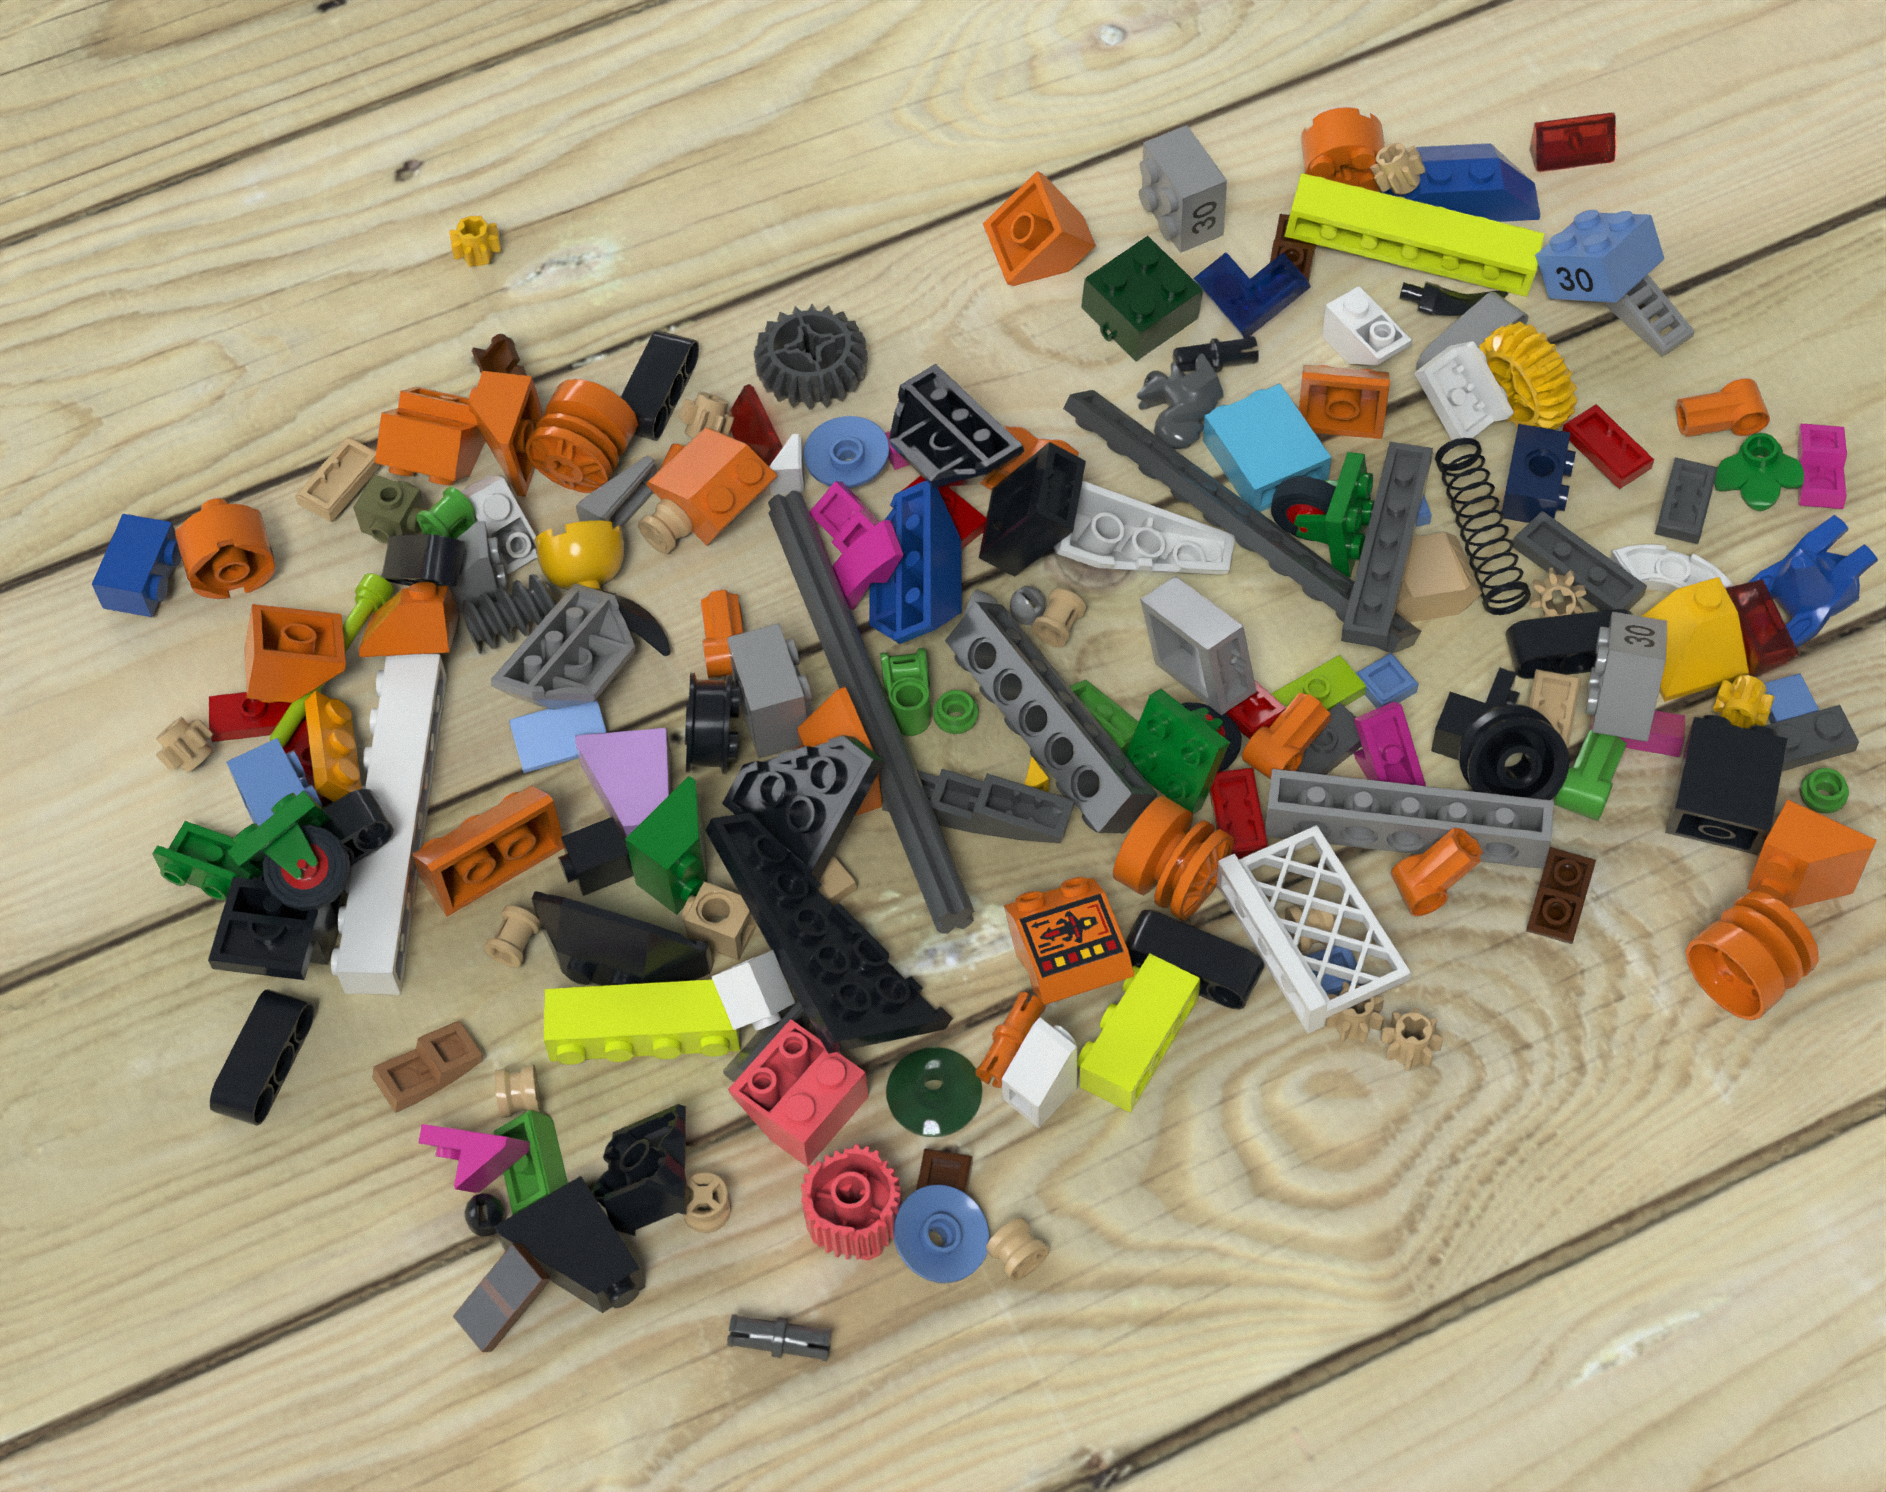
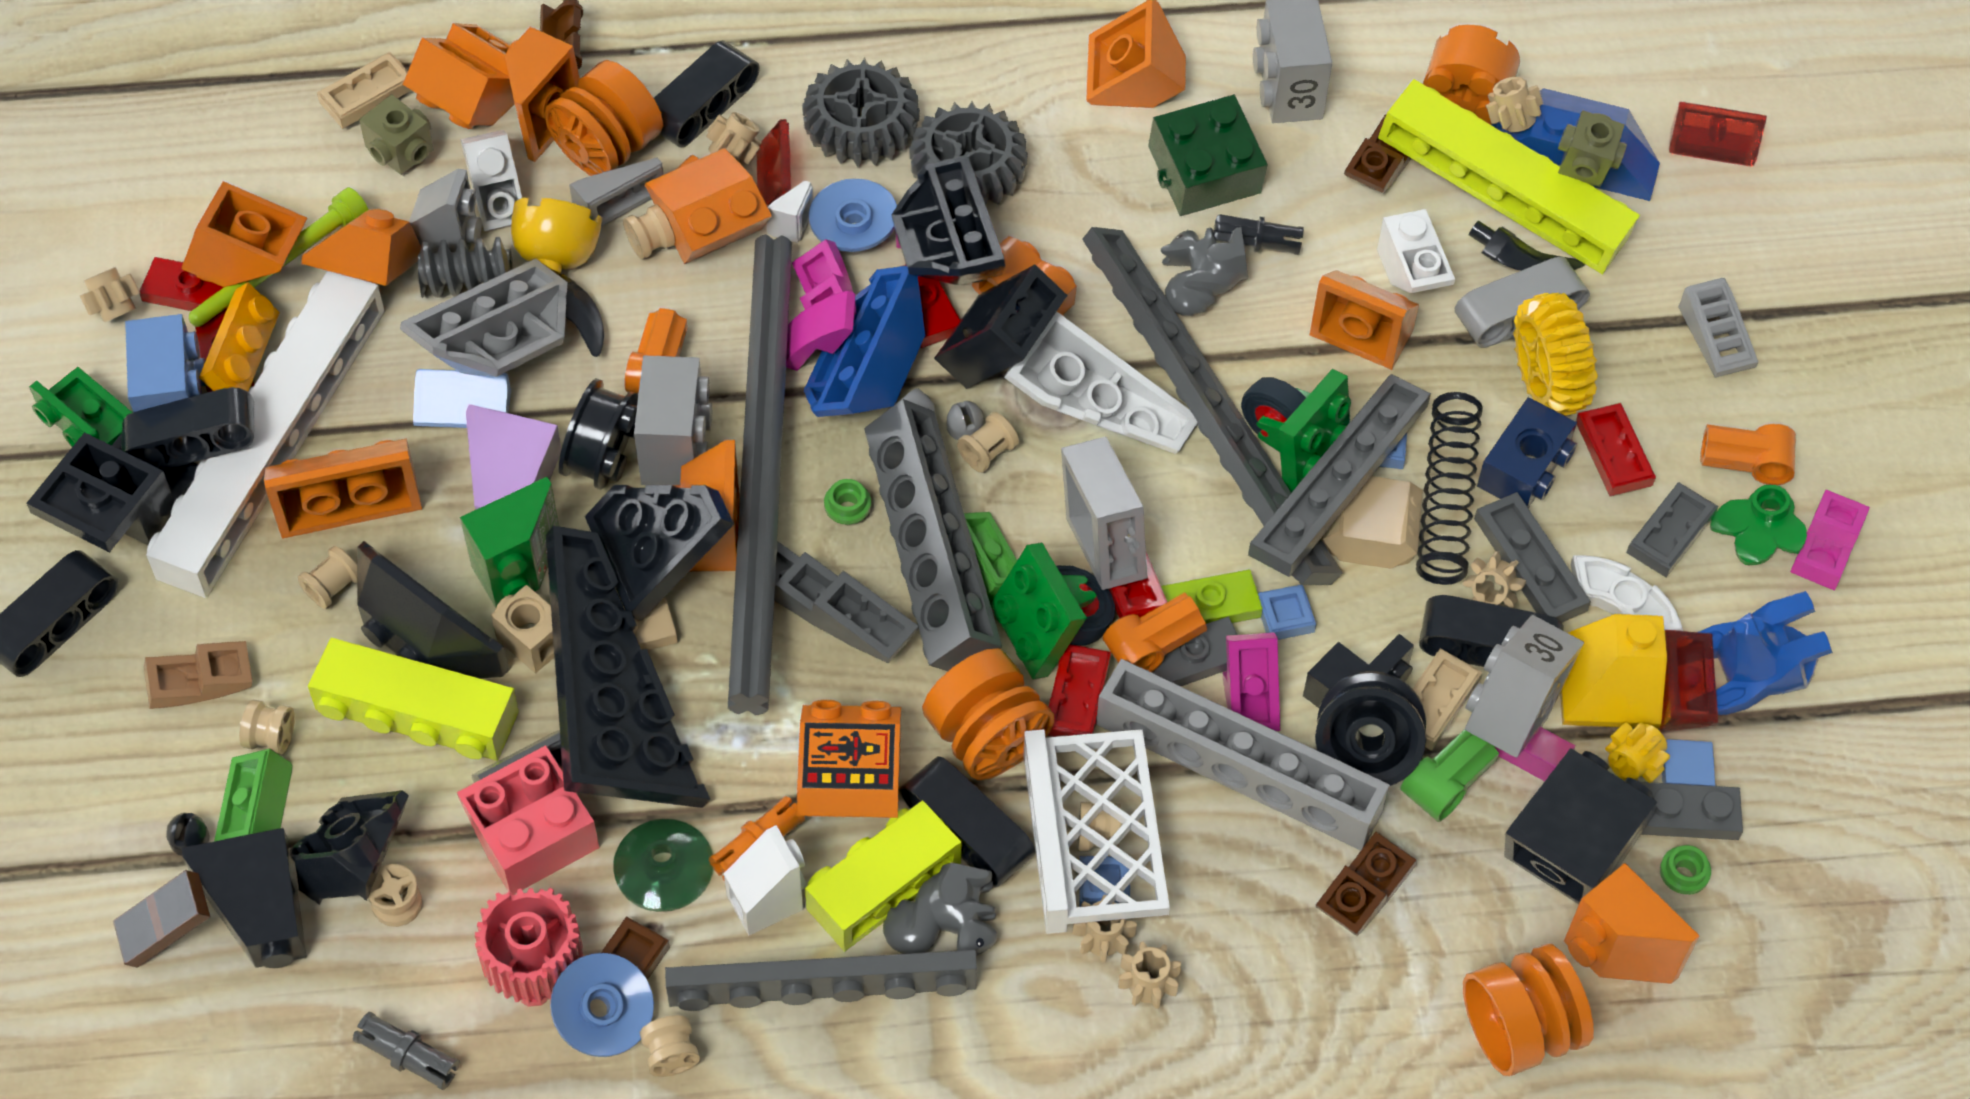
camera: 15 degrees right, 0 degrees up
(137, 565) = (142, 112): blue brick -> none
(225, 549) = (226, 122): orange brick -> none
(299, 859) = (142, 426): plate -> none
(423, 559) = (399, 190): black beam -> none
(448, 516) = (438, 157): bright green piece -> none
(480, 1155) = (200, 775): dark pink slope -> none
(595, 856) = (436, 527): black brick -> none
(754, 991) = (522, 707): white brick -> none
(908, 347) = (988, 139): none -> dark grey gear
(908, 685) = (809, 458): bright green piece -> none
(1036, 777) = (894, 593): yellow piece -> none
(1111, 1149) = (808, 979): none -> dark grey plate
(1208, 1038) = (947, 904): none -> dark grey animal
(1254, 300) = (1320, 191): clear blue plate -> none
(1263, 444) = (1266, 334): medium azure brick -> none
(1427, 876) = (1236, 817): orange piece -> none
(1463, 390) = (1486, 346): white bracket -> none
(1484, 186) = (1591, 148): none -> olive brick
(1600, 256) = (1685, 255): medium blue brick -> none

